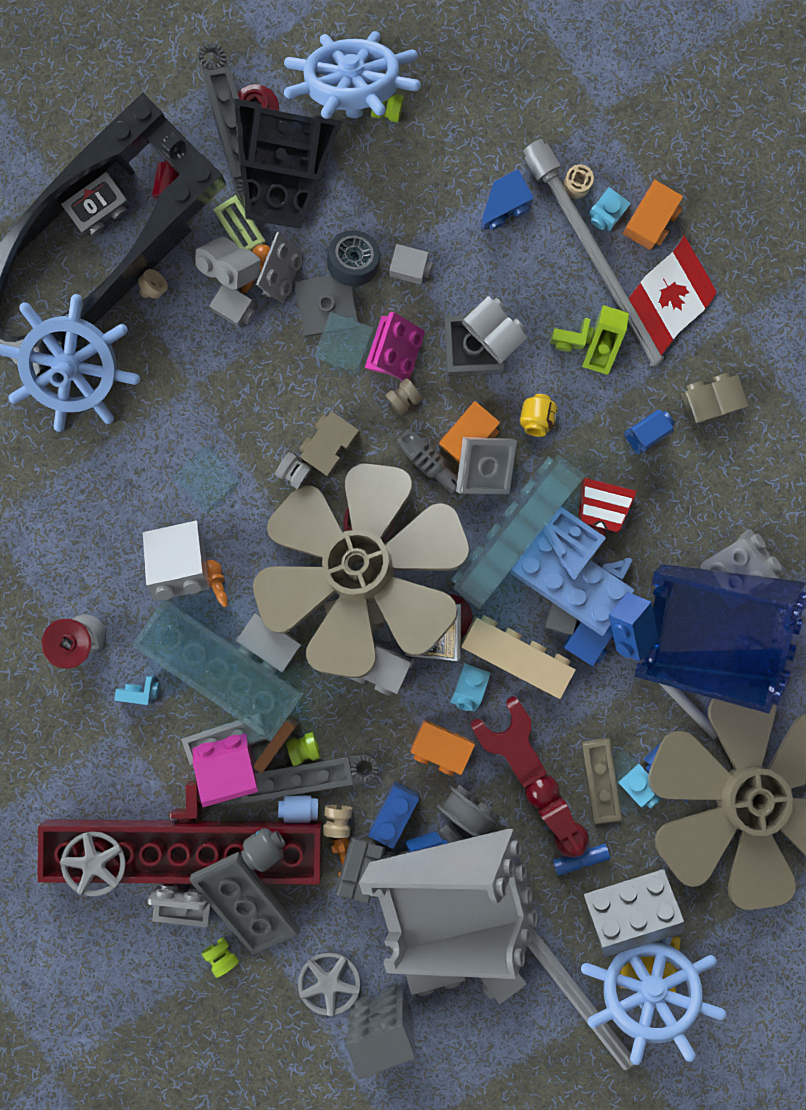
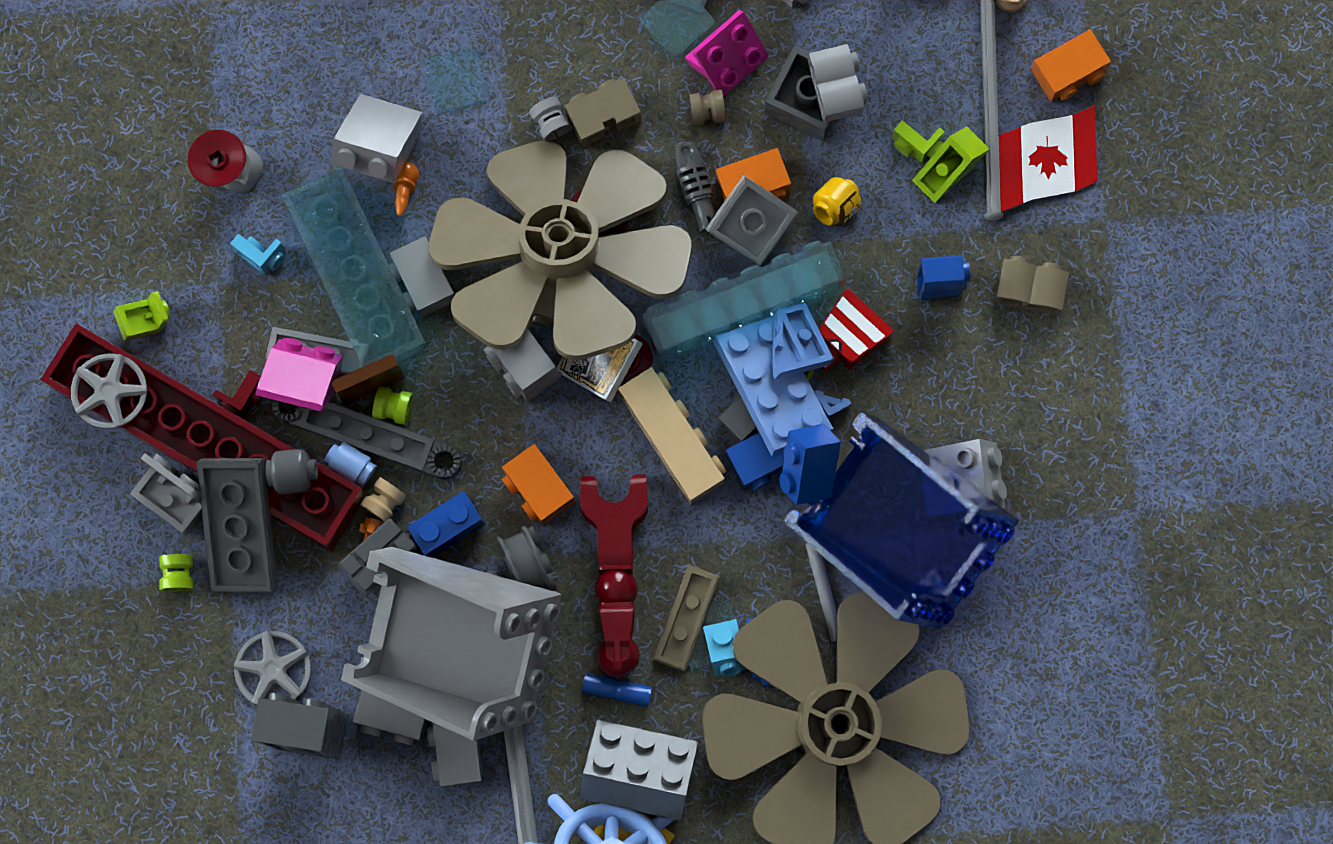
camera: 30 degrees right, 10 degrees down
(82, 787) = (142, 317): none -> lime bracket
(470, 688) = (603, 441): medium azure bracket -> none
(608, 210) = (1028, 37): medium azure bracket -> none

